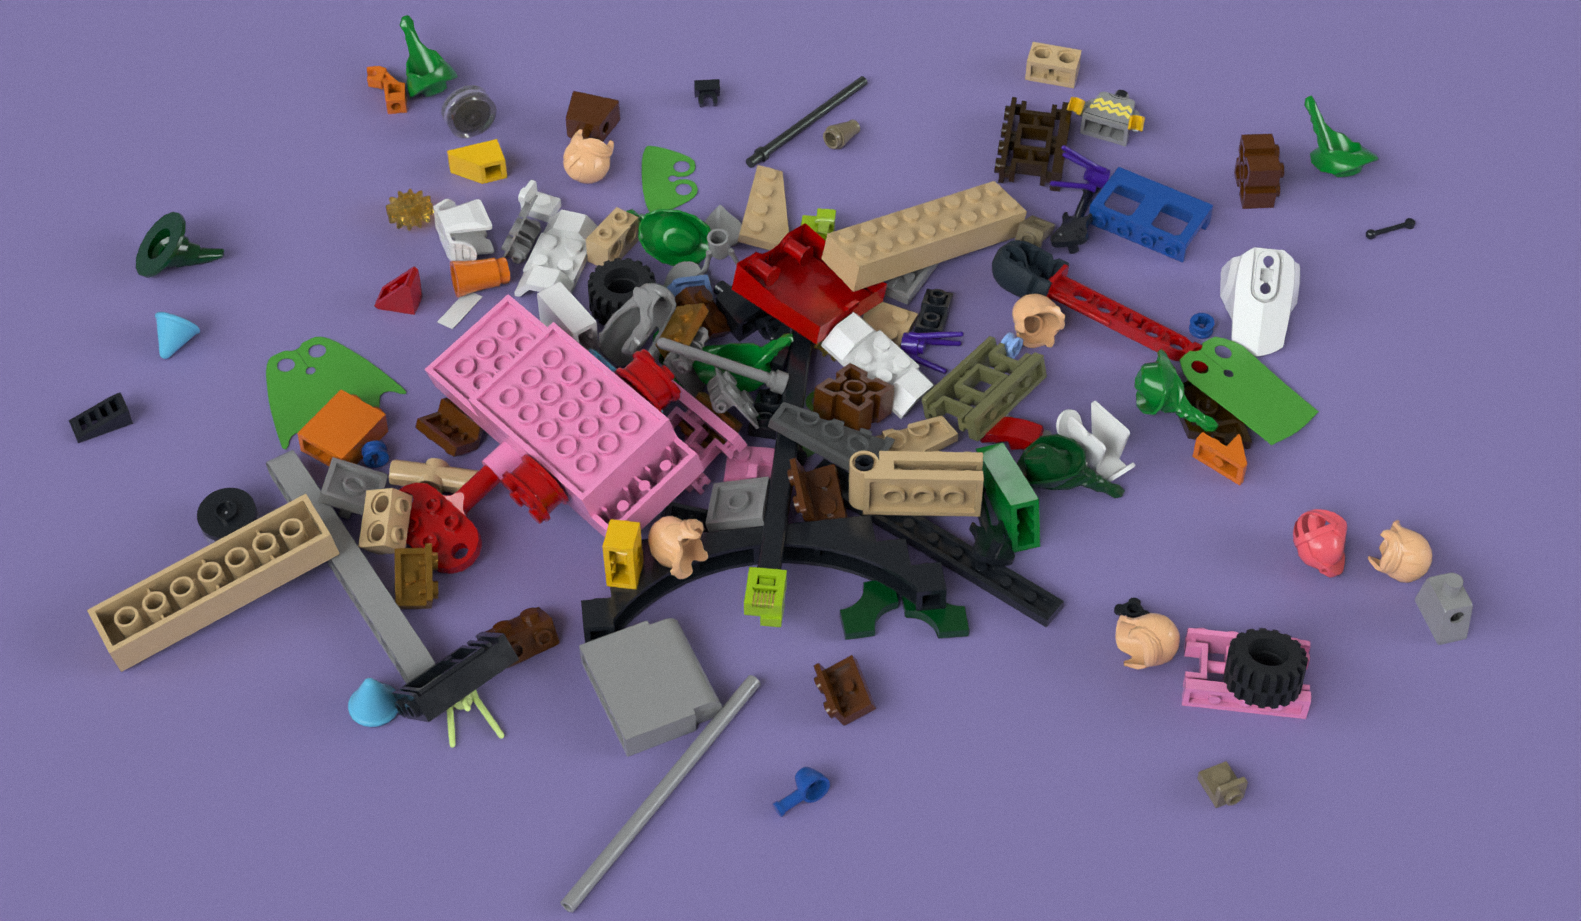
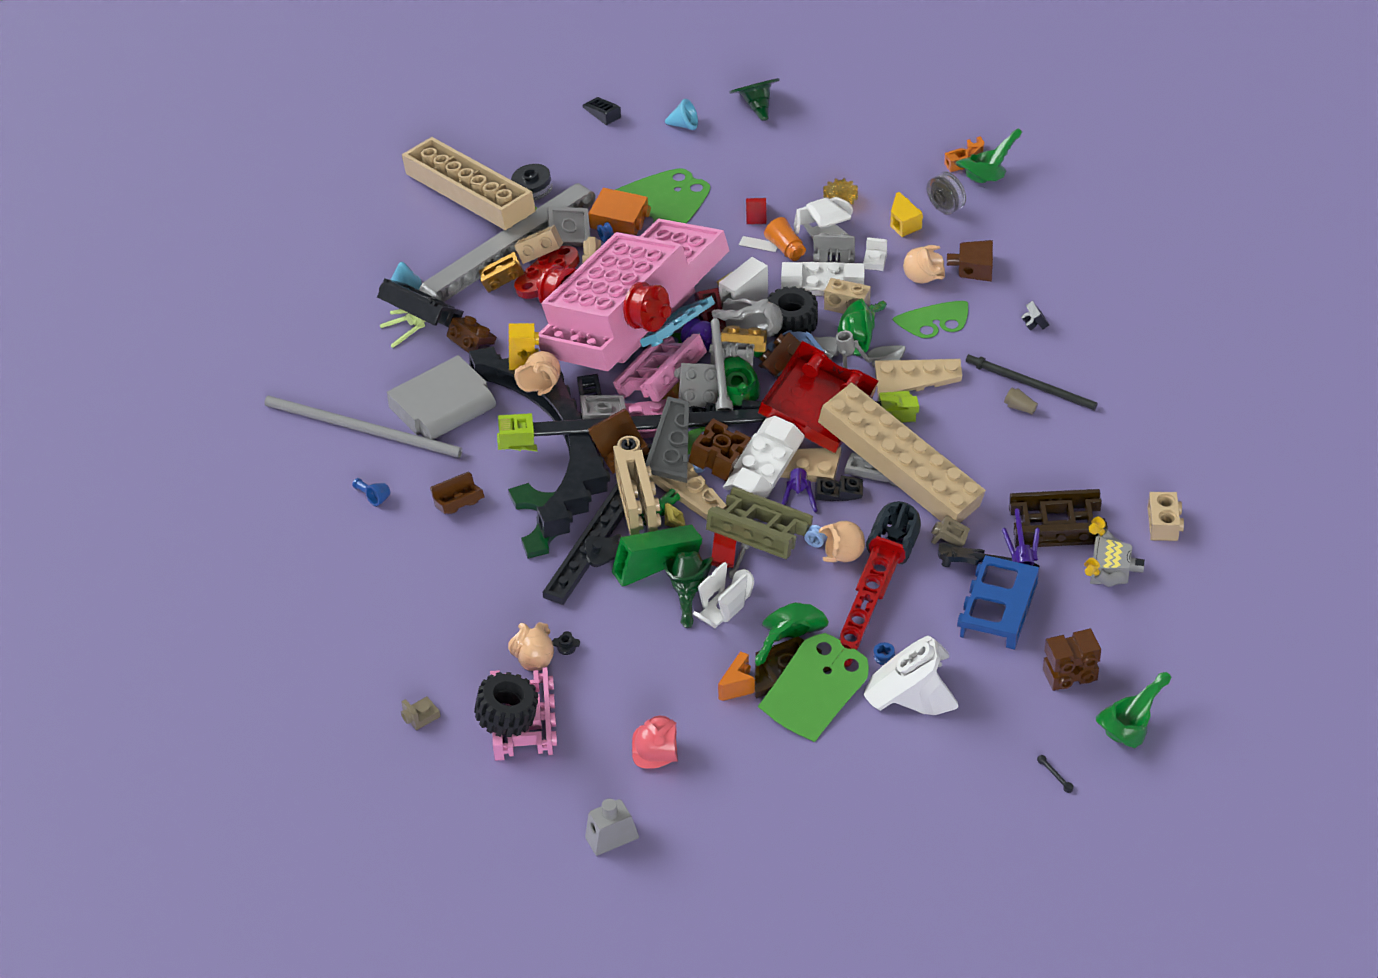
camera: 80 degrees right, 5 degrees down
(1404, 554) = (657, 793): light nougat hair -> none

